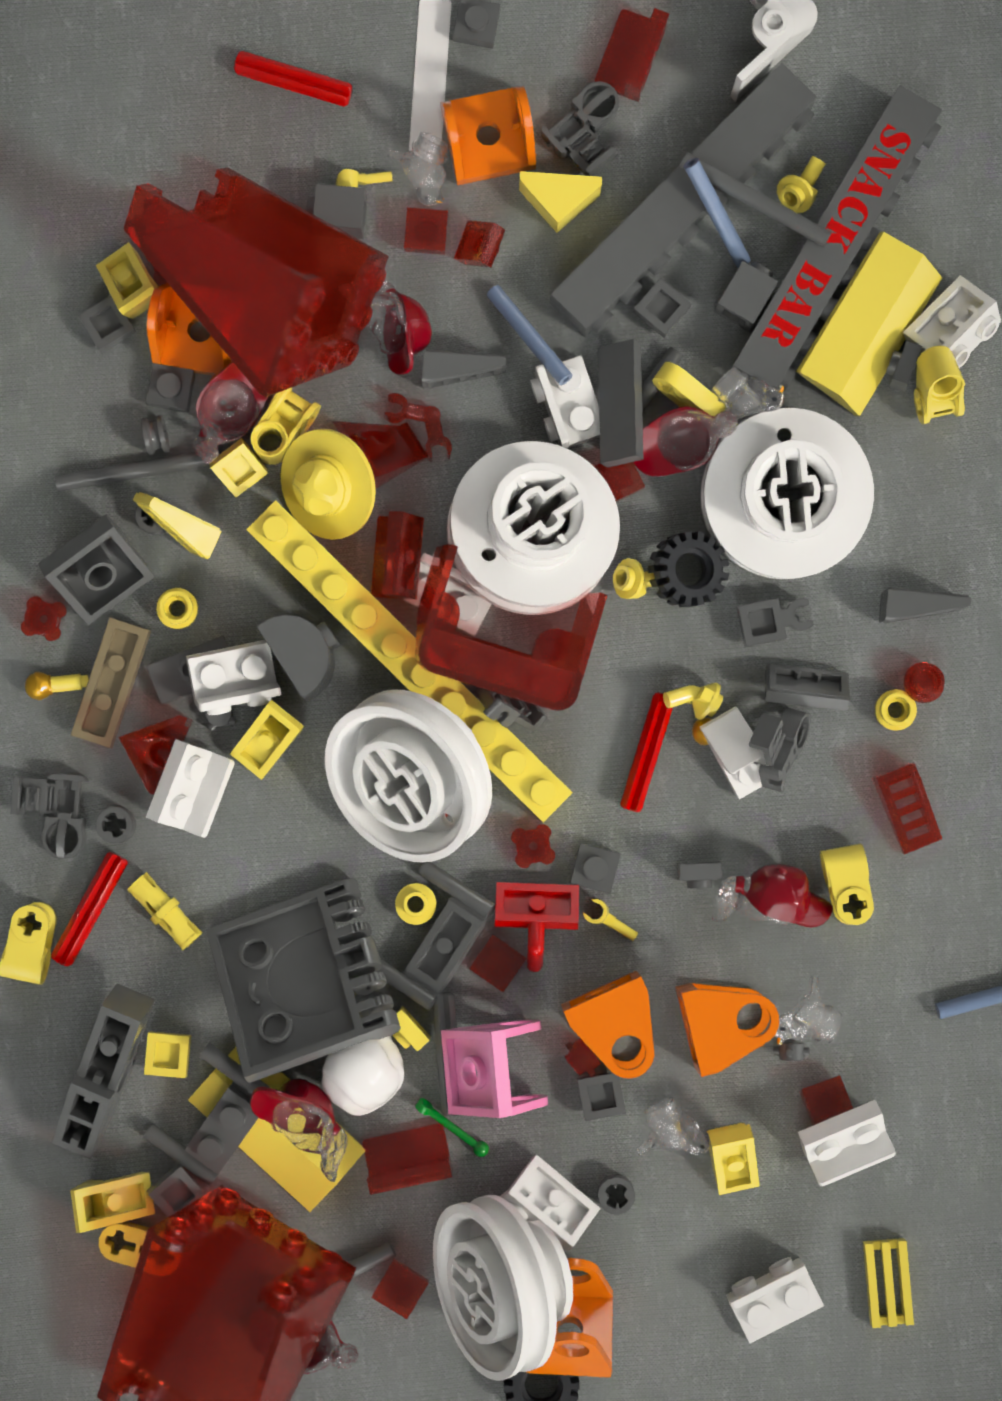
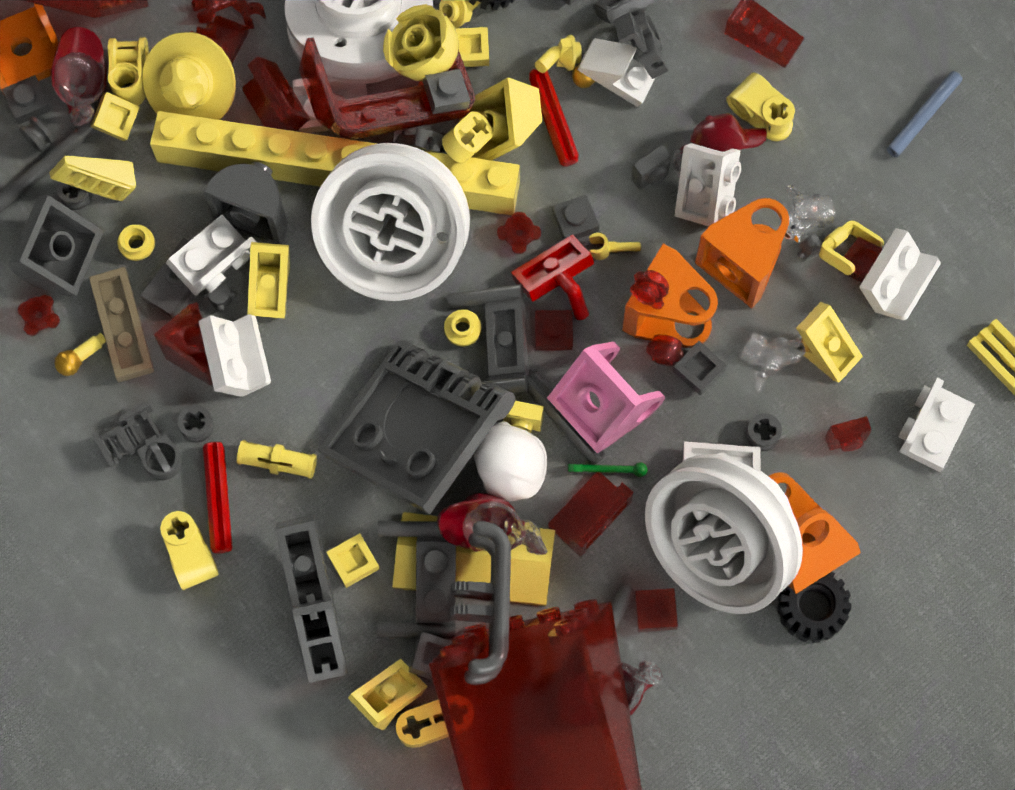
camera: 35 degrees left, 15 degrees down
(249, 1213) = (497, 614): none -> dark grey piece
(543, 743) = (467, 137): none -> light yellow beam
(548, 683) = (446, 91): none -> dark grey plate
(557, 619) = (421, 43): none -> light yellow cylinder
(590, 732) = (512, 112): none -> light yellow slope
(592, 1019) = (650, 288): none -> clear red plate
(619, 627) = (474, 46): none -> light yellow plate
(687, 1255) = (848, 435): none -> clear red plate
(733, 932) = (707, 184): none -> white bracket
(817, 1062) = (838, 236): none -> light yellow piece

